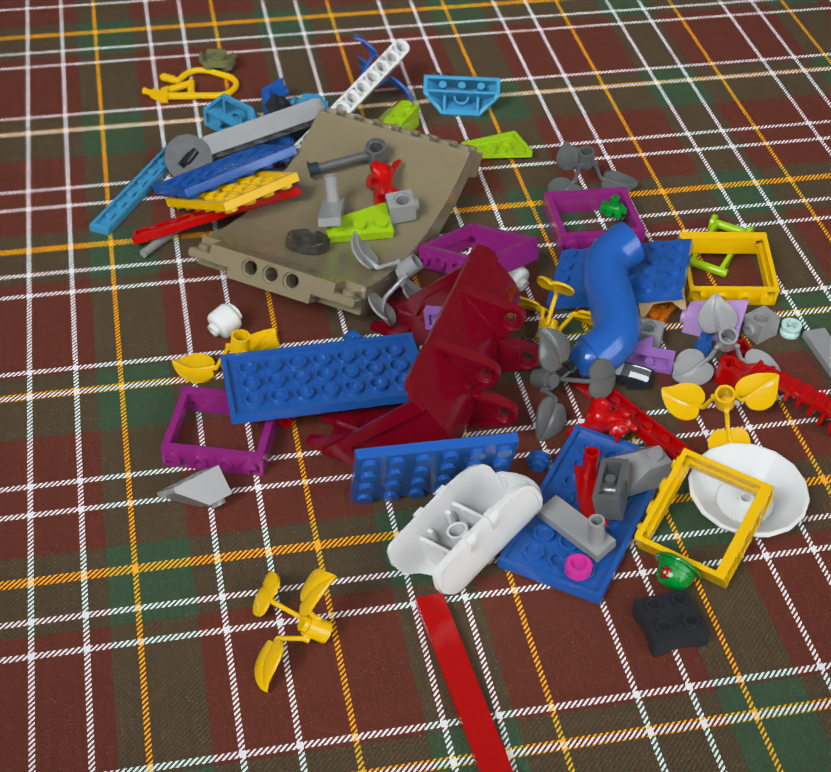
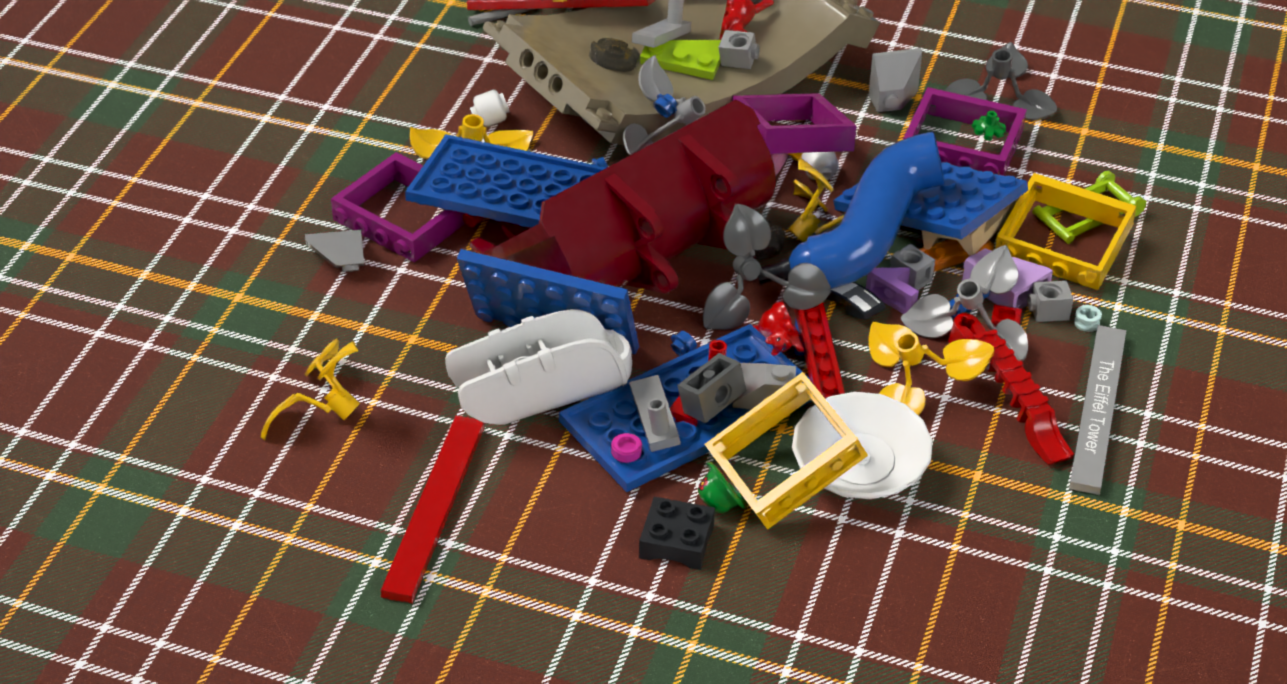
camera: 30 degrees right, 0 degrees up
(388, 269) = (665, 105): none -> blue plate
(501, 146) = (929, 25): lime wing -> none
(513, 194) = (894, 78): none -> light grey slope

